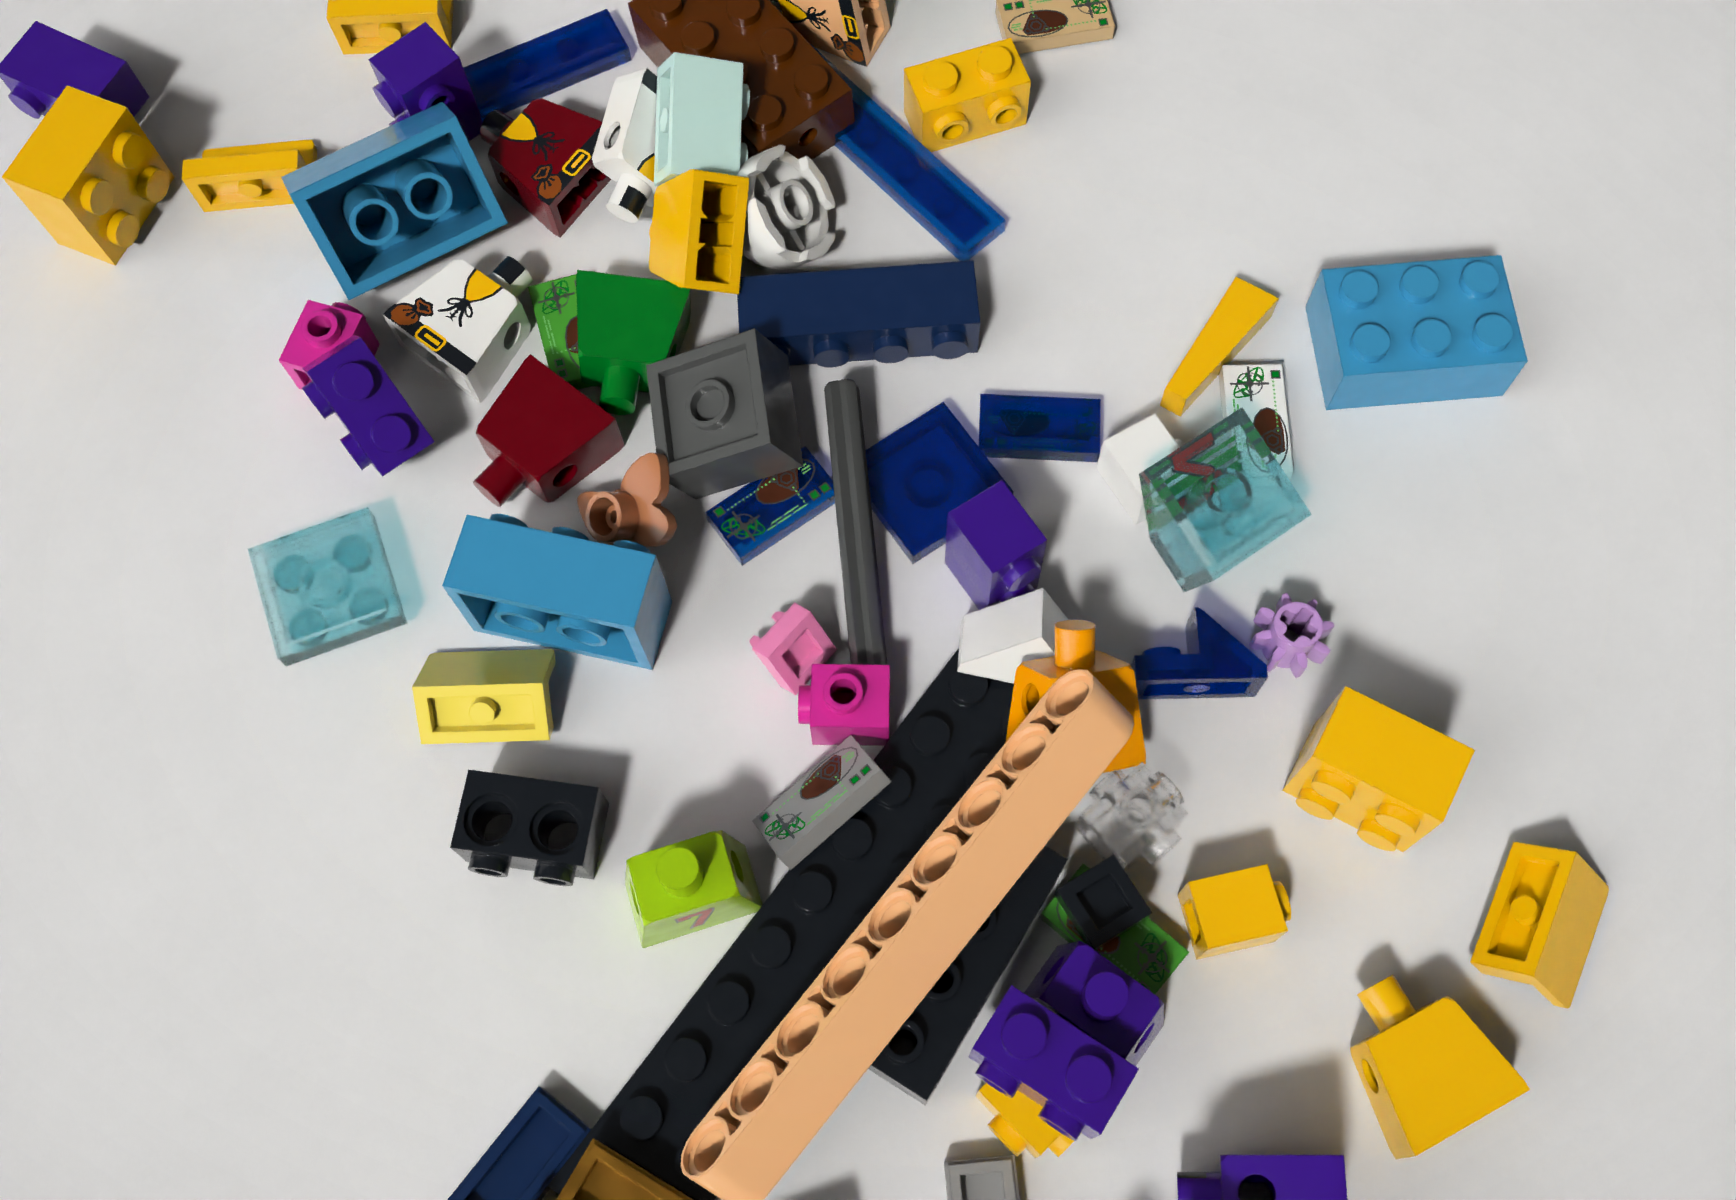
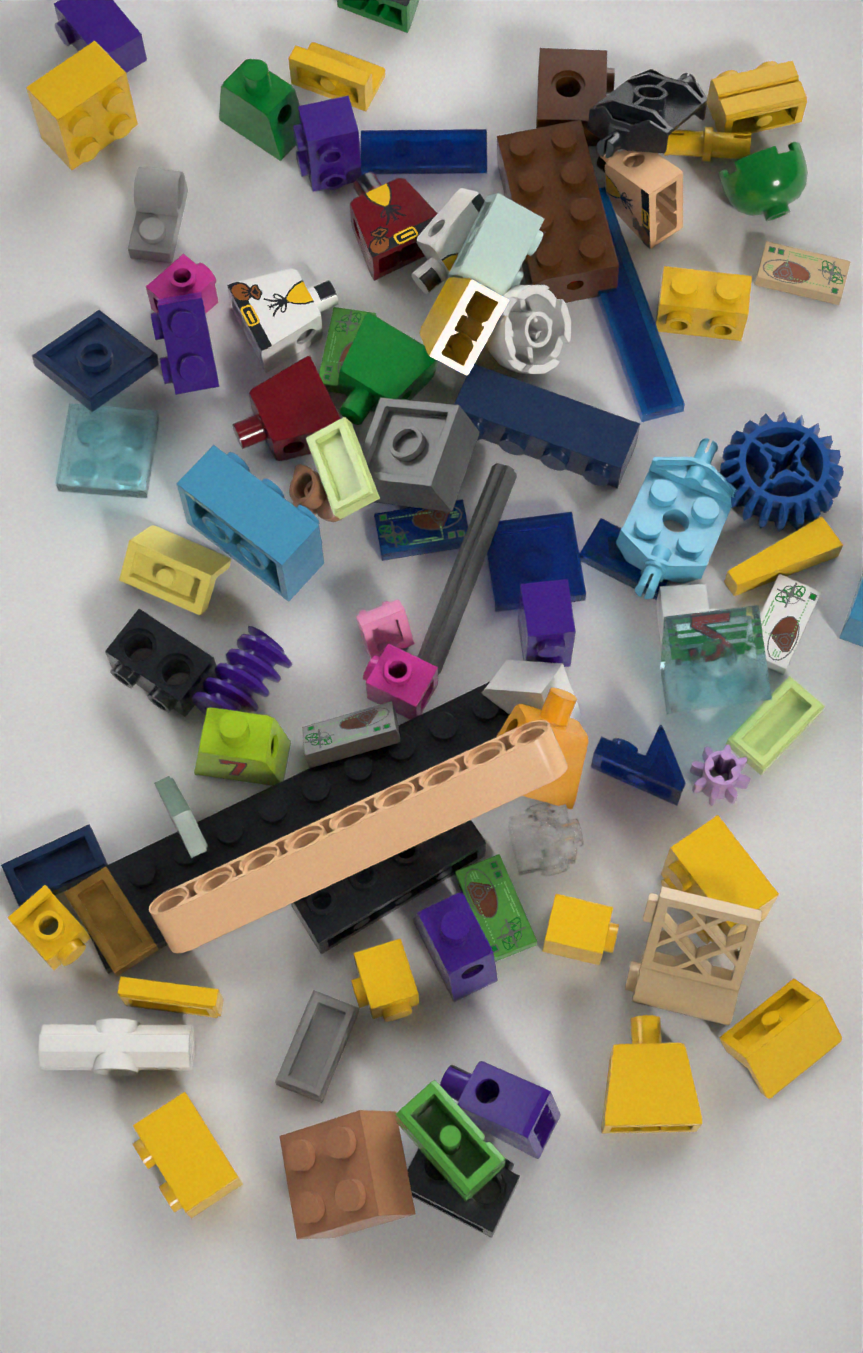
camera: 25 degrees right, 0 degrees up
(245, 174) = (190, 147): yellow panel -> none
(252, 267) = (159, 212): none -> light grey plate
(256, 481) = (95, 360): none -> dark blue tile
(319, 87) = (260, 107): none -> green torso
(395, 199) = (271, 210): dark azure brick -> none
(645, 471) = (342, 468): none -> yellowish green tile
(645, 791) = (243, 674): none -> dark purple piece
(662, 1020) = (181, 816): none -> sand green tile
(1051, 1064) = (403, 953): dark purple brick -> none
(1079, 321) = (679, 491): none -> medium azure plate
(1102, 903) = (494, 881): black plate -> none
(1196, 247) = (770, 450): none -> blue gear
(1317, 547) = (775, 725): none -> yellowish green tile
(1408, 910) = (689, 981): none -> tan piece

